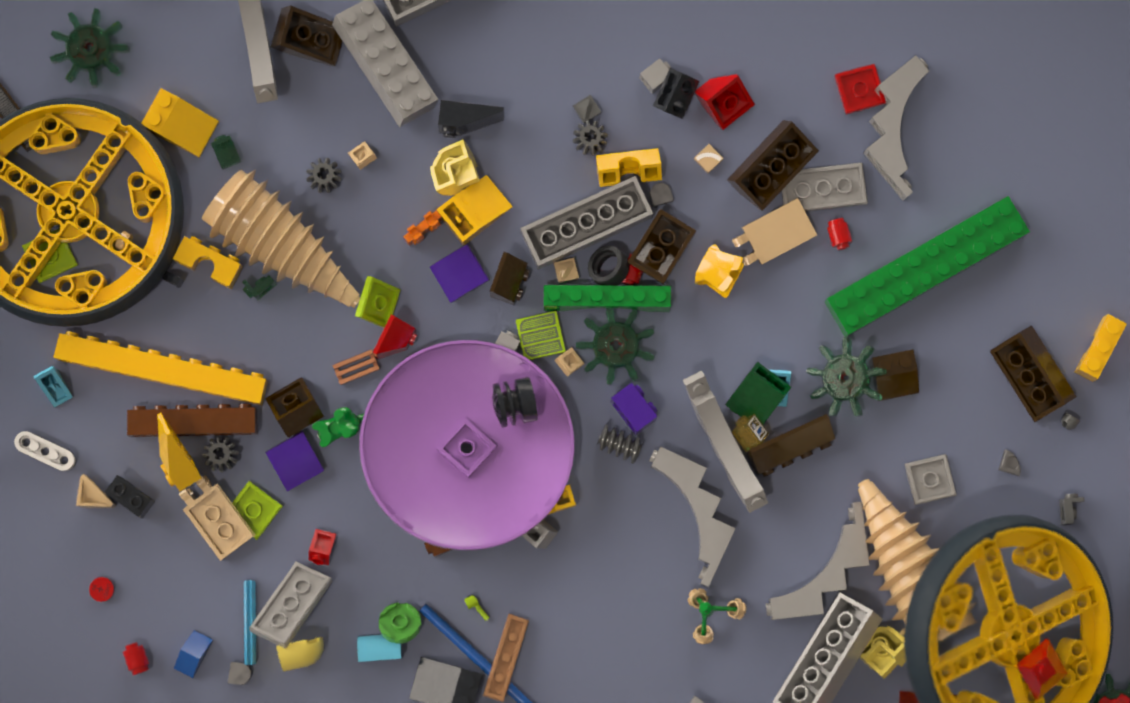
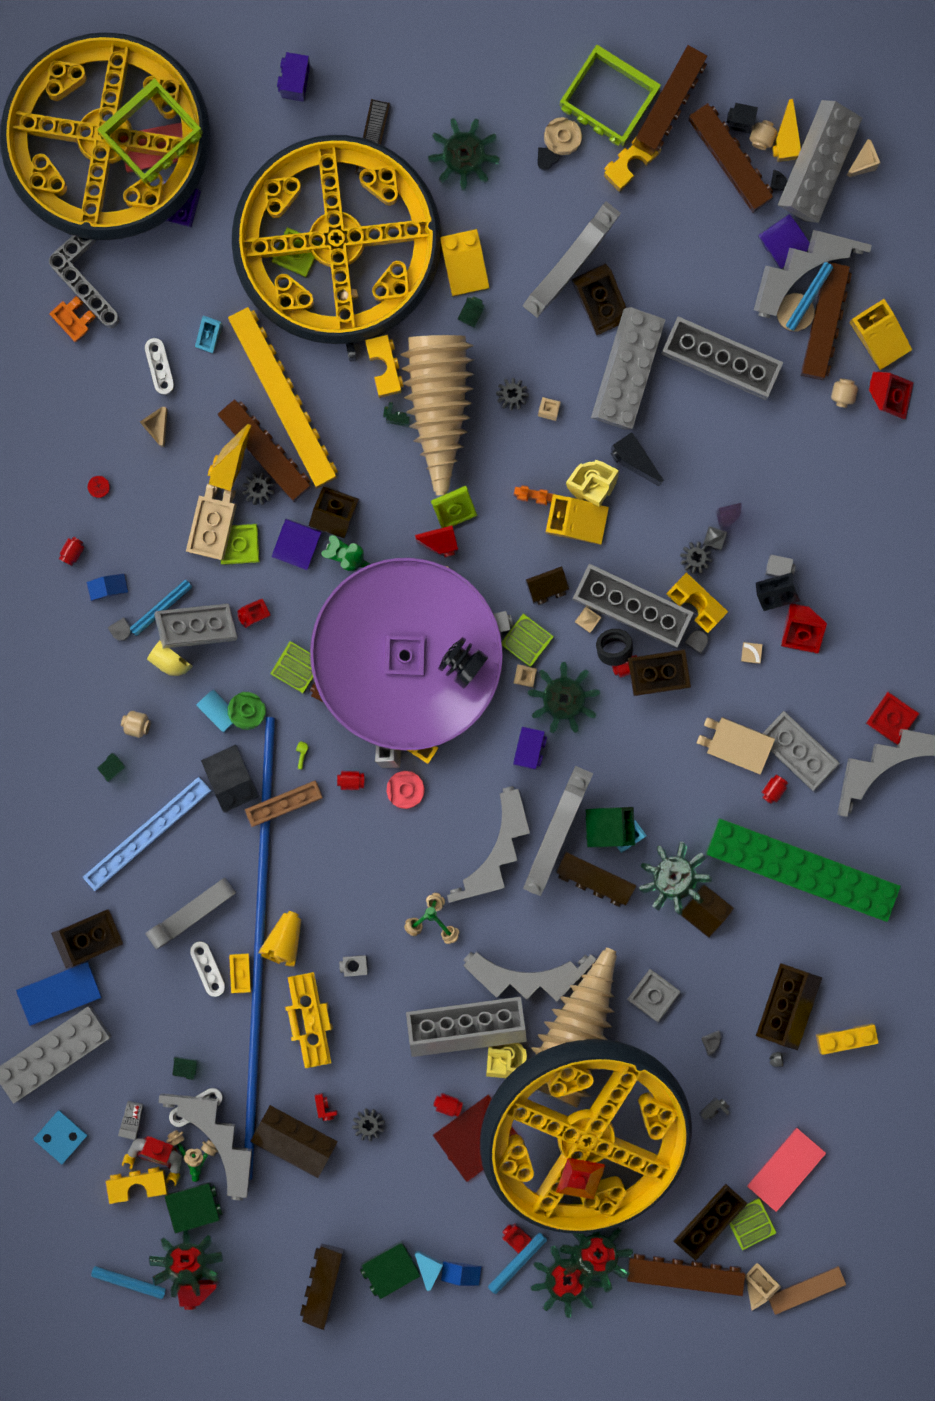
camera: 50 degrees right, 5 degrees up
(129, 496) = (177, 452): black brick -> none
(351, 360) = (382, 523): nougat tile -> none
(398, 550) = (294, 667): none -> tile
(459, 273) = (522, 547): dark purple slope -> none
(534, 583) = (350, 780): none -> red brick
(577, 81) = (728, 515): none -> clear purple brick
(580, 543) = (405, 789): none -> coral tile
(595, 296) = (591, 663): green arch -> none
(620, 444) = (496, 758): dark grey piece -> none
(719, 271) = (676, 727): yellow piece -> none
(749, 432) = (580, 842): clear yellow brick -> none
(773, 164) = (784, 702): dark brown slope -> none

